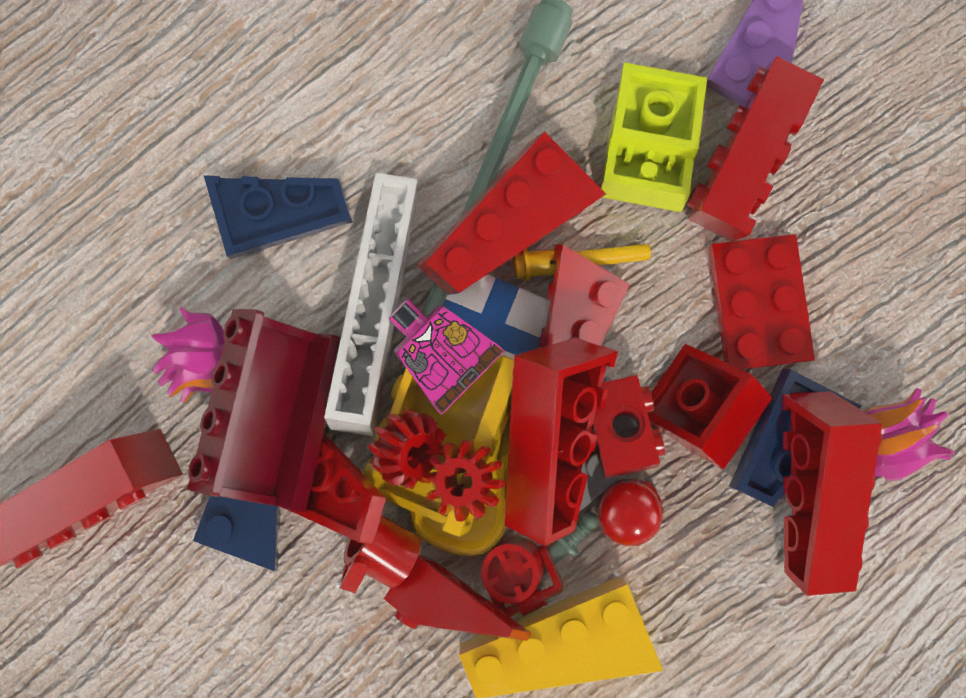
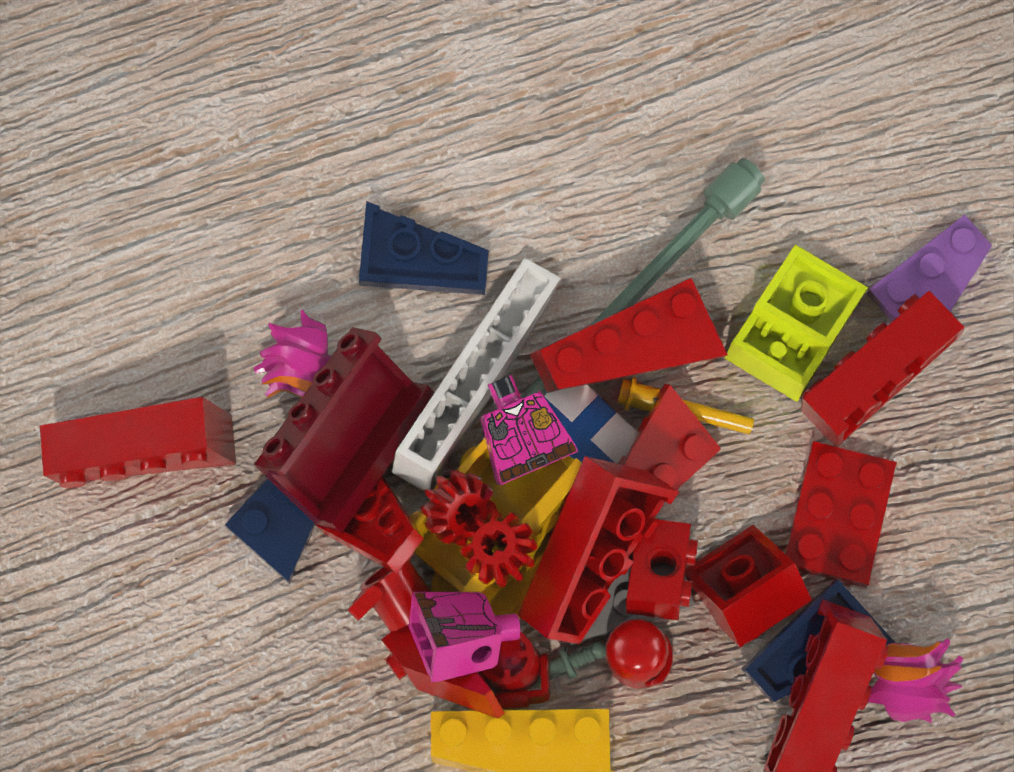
camera: 20 degrees right, 10 degrees down
(457, 579) = (458, 632): none -> dark pink torso

